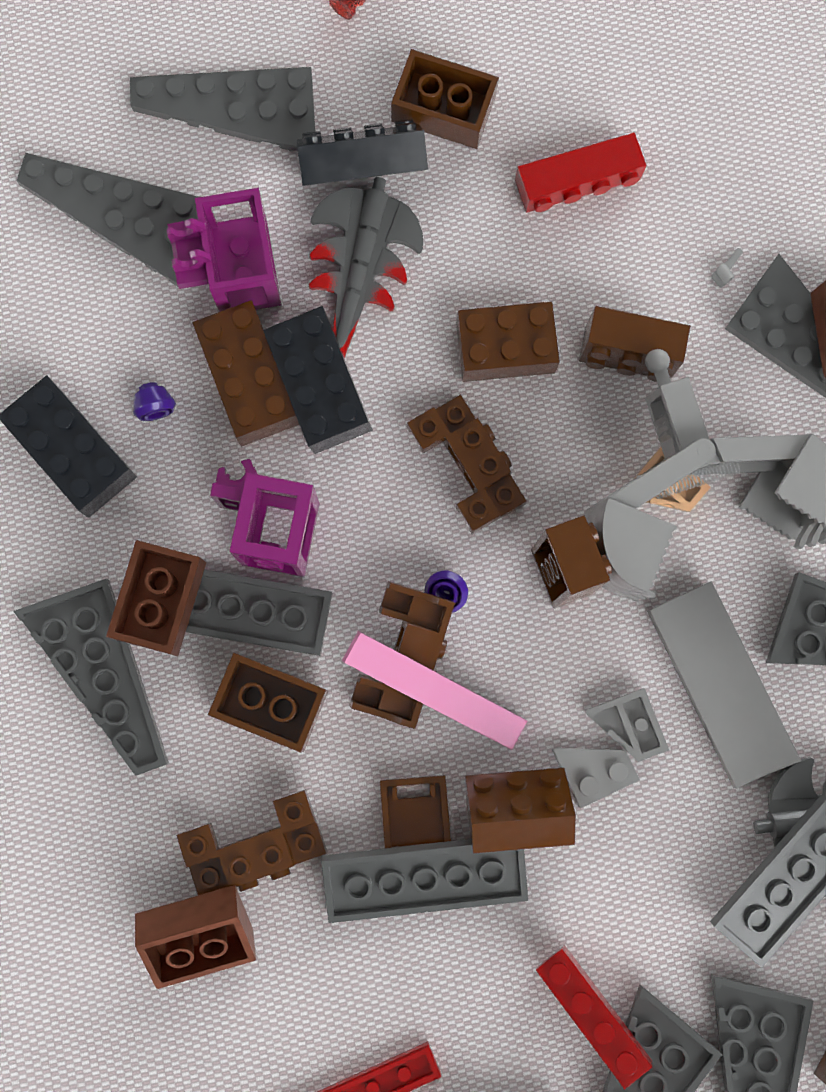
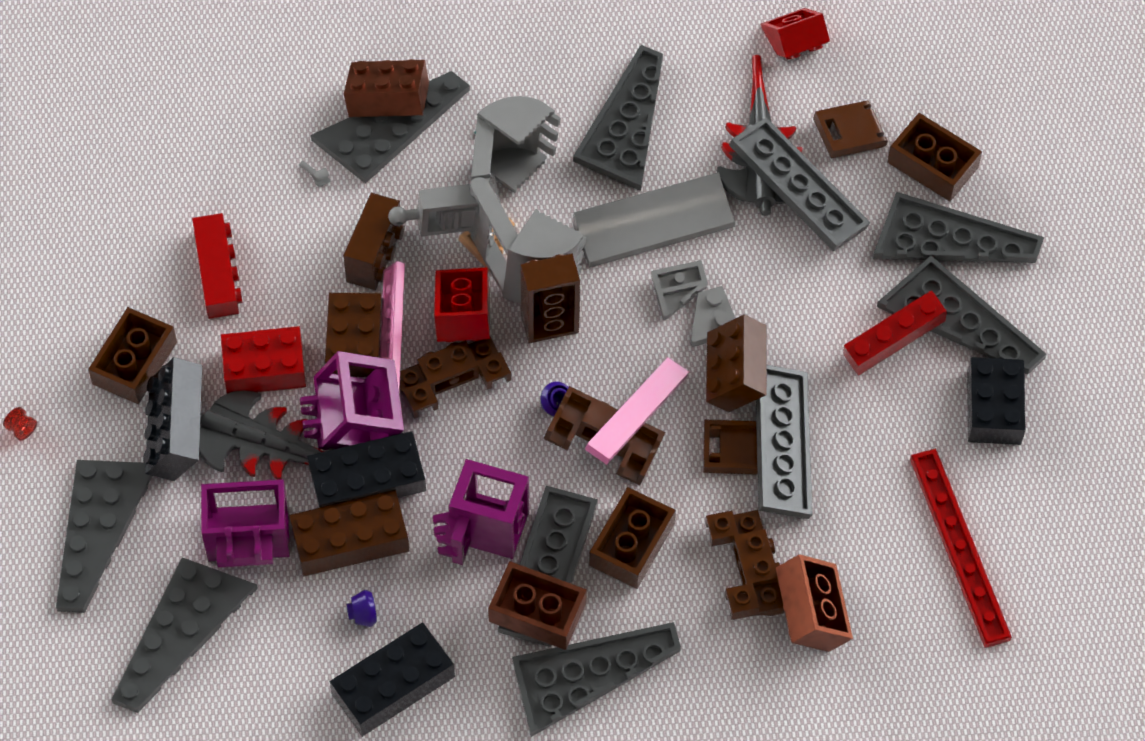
camera: 80 degrees left, 20 degrees down
(401, 353) = (353, 407): none -> magenta piece
(459, 244) = (263, 360): none -> red brick
(504, 383) = (392, 314): none -> bright pink tile
(556, 460) = (462, 304): none -> red brick

